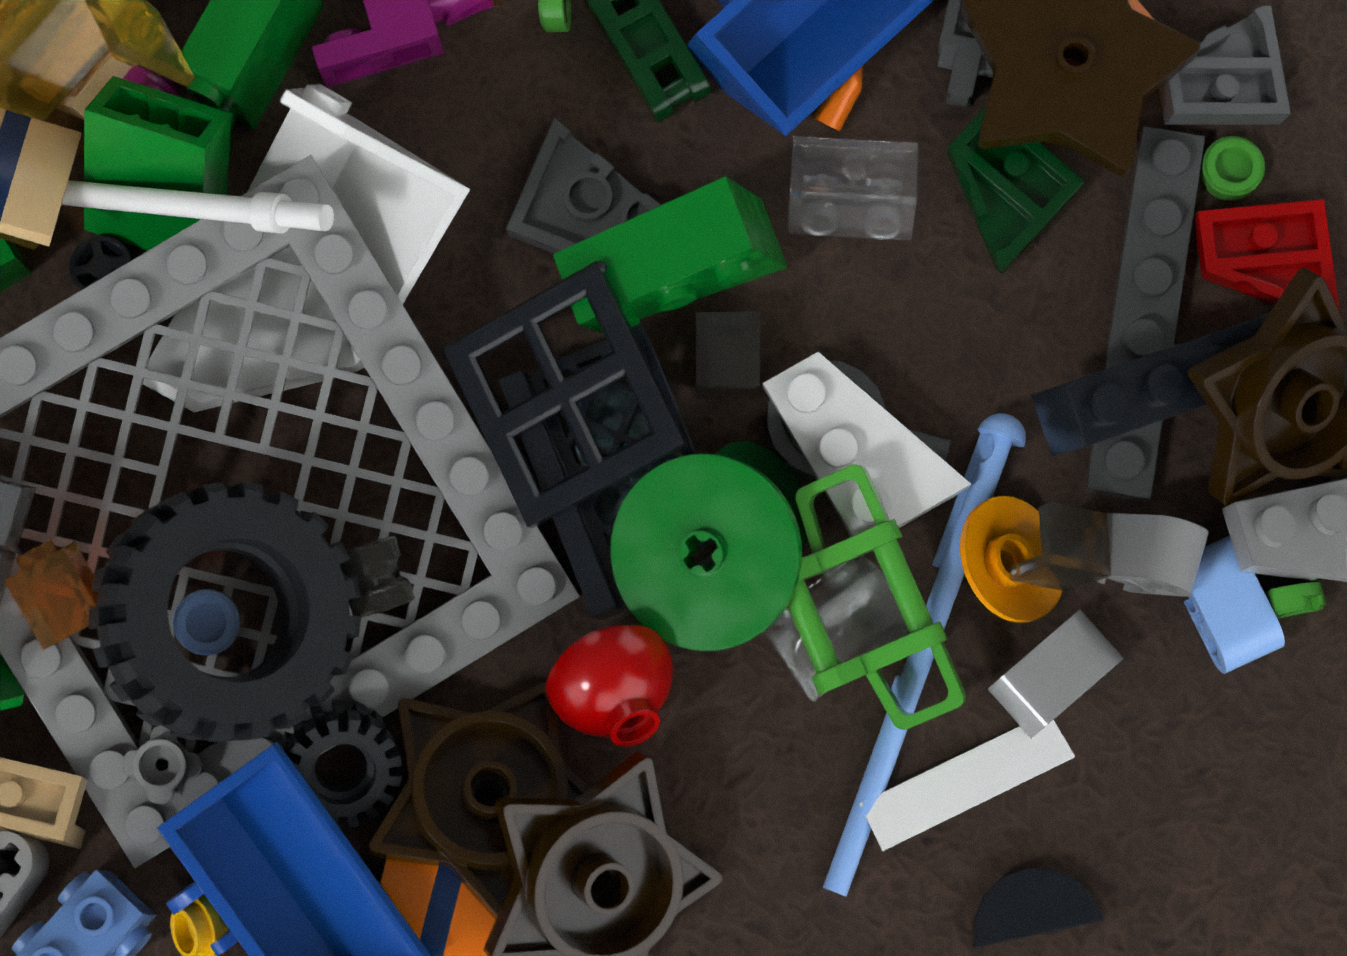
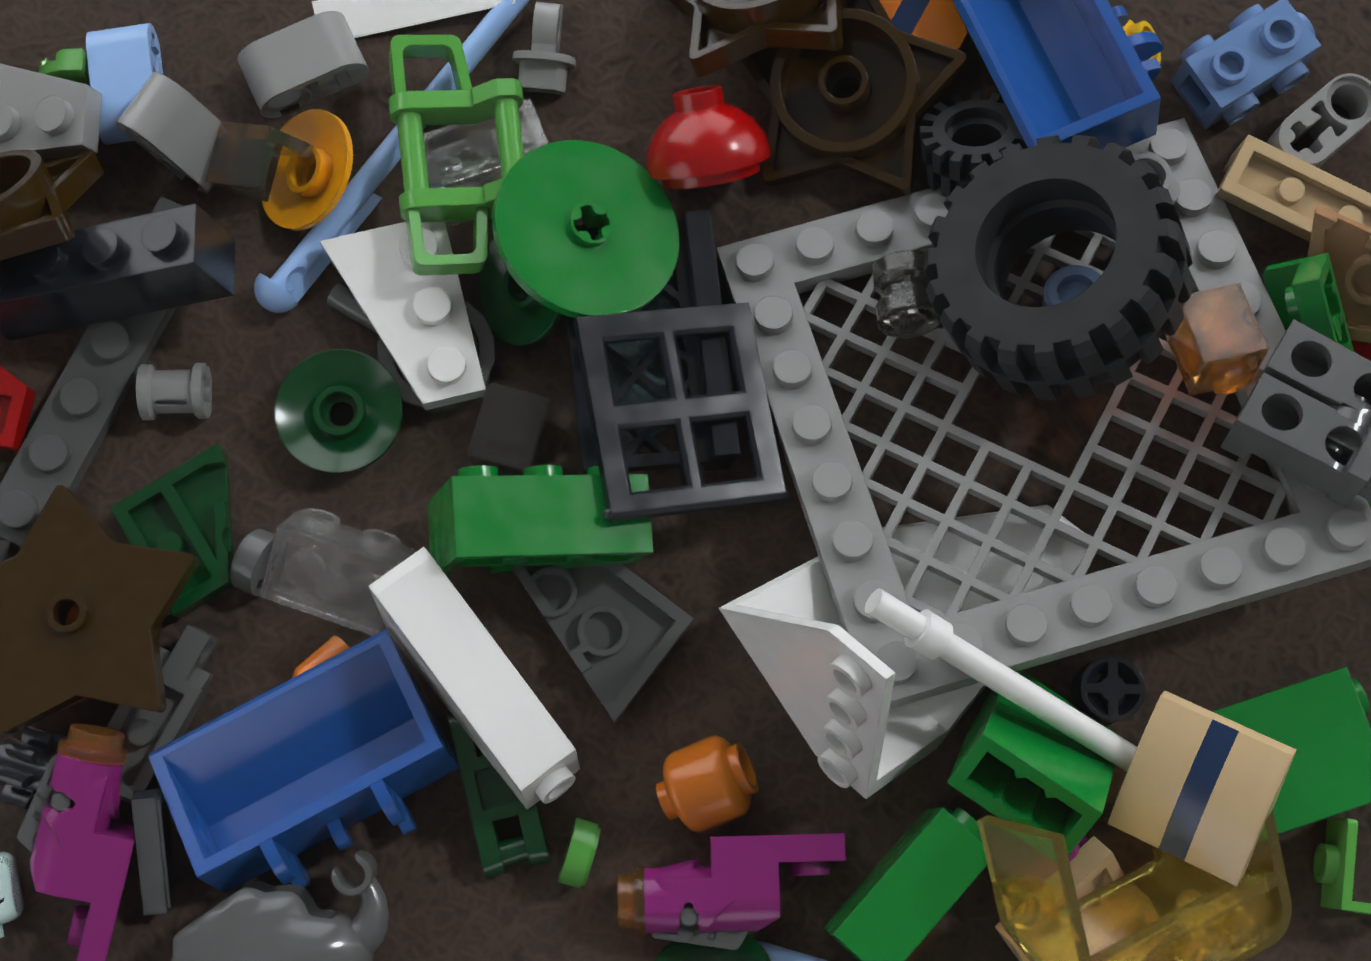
camera: 175 degrees left, 0 degrees up
(455, 88) = (707, 784): none -> orange head
(683, 101) = (475, 679): none -> white slope
(810, 745) = (543, 66): none -> light grey piece
(907, 301) = (317, 389): none -> dark green dish
(931, 172) = (251, 561): none -> dark grey tile
(1065, 309) = (174, 391): none -> light grey bush

